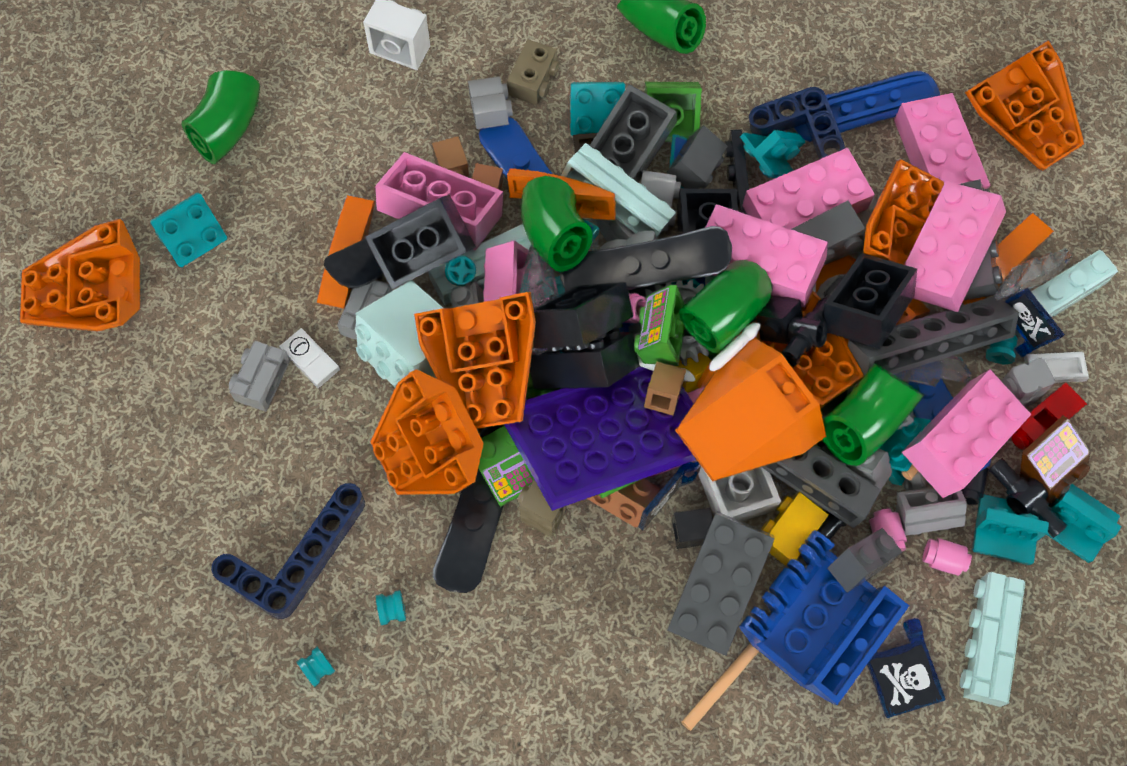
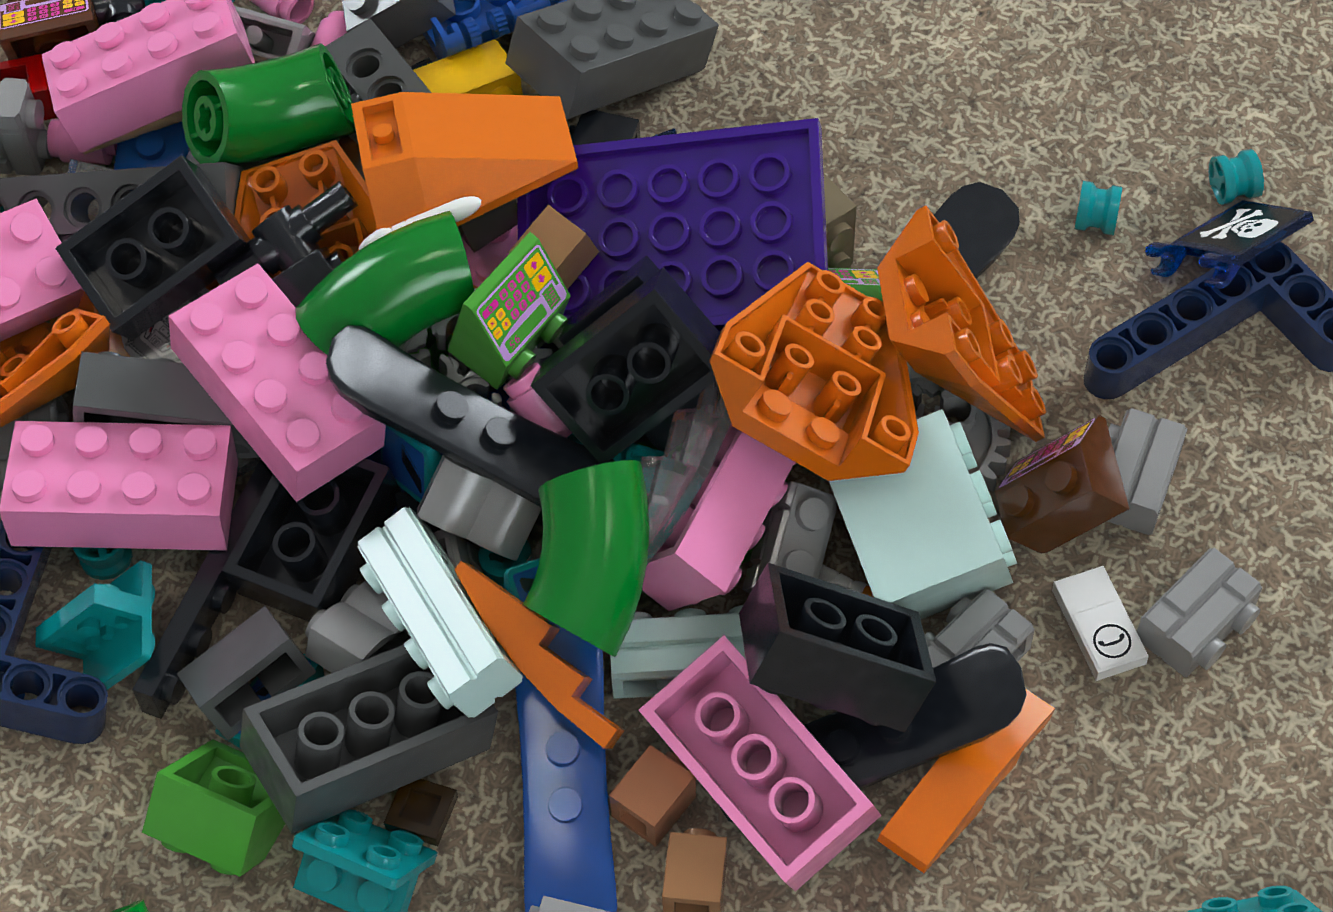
camera: 150 degrees left, 10 degrees down
(301, 612) = (1230, 239): none -> flag
(315, 442) = (1146, 461): none -> light grey brick
(349, 404) = (1062, 489): none -> reddish brown slope

